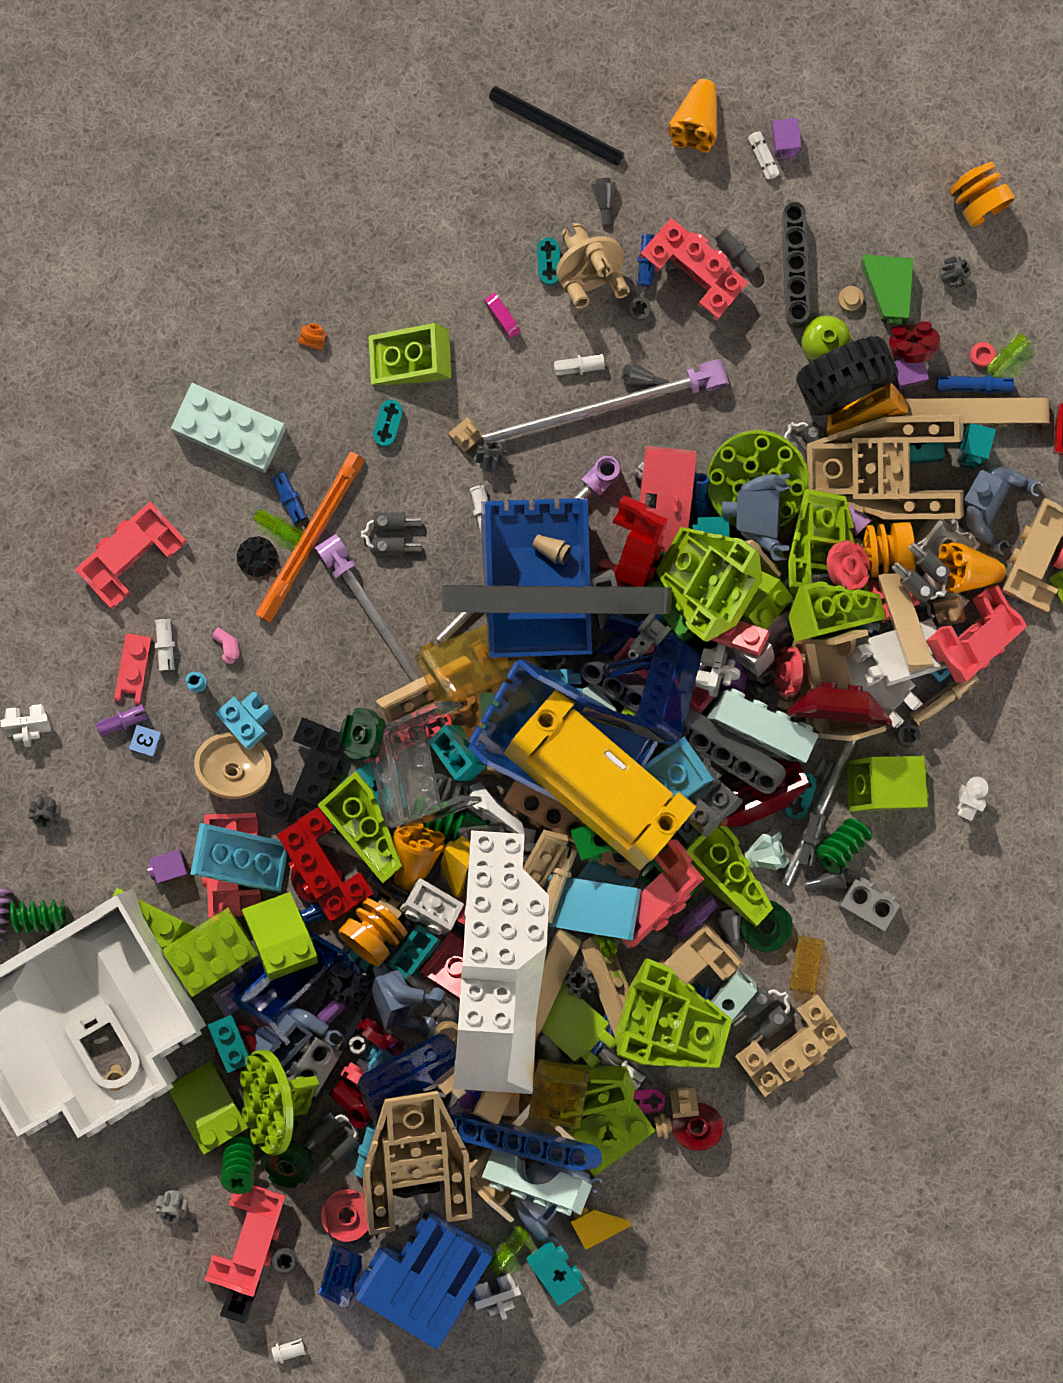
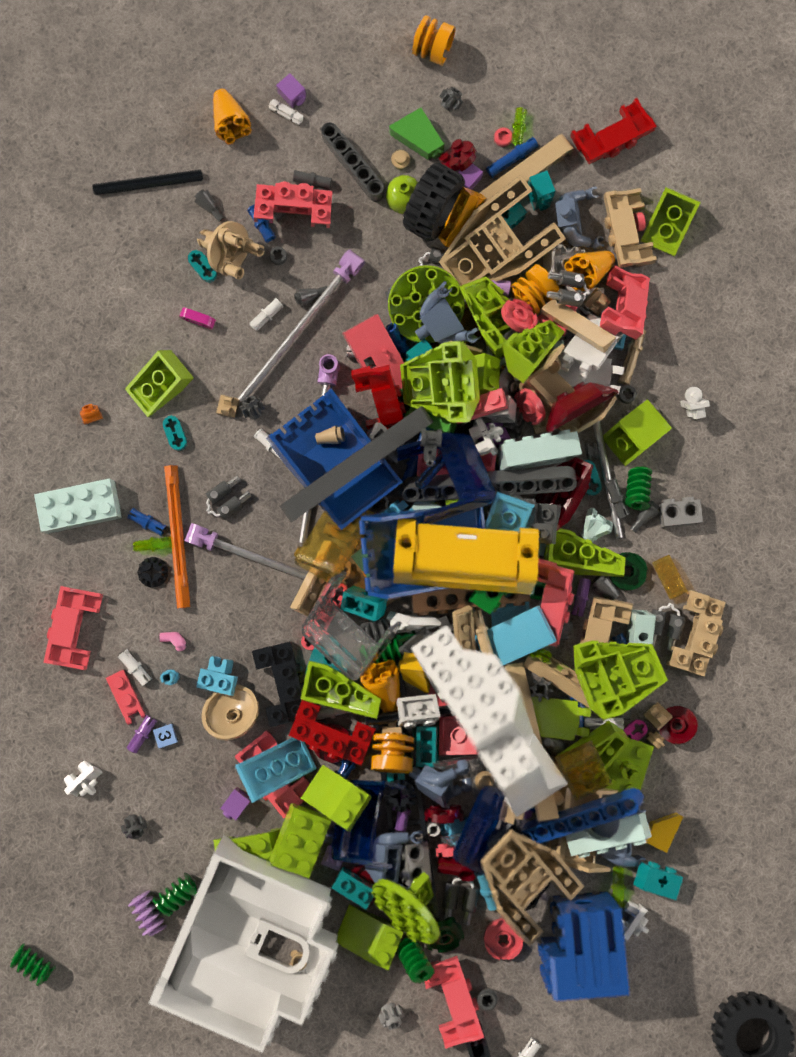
camera: 30 degrees left, 0 degrees up
(340, 1275) = (528, 982): clear blue plate -> none
(372, 727) = (305, 637): dark green plate -> none

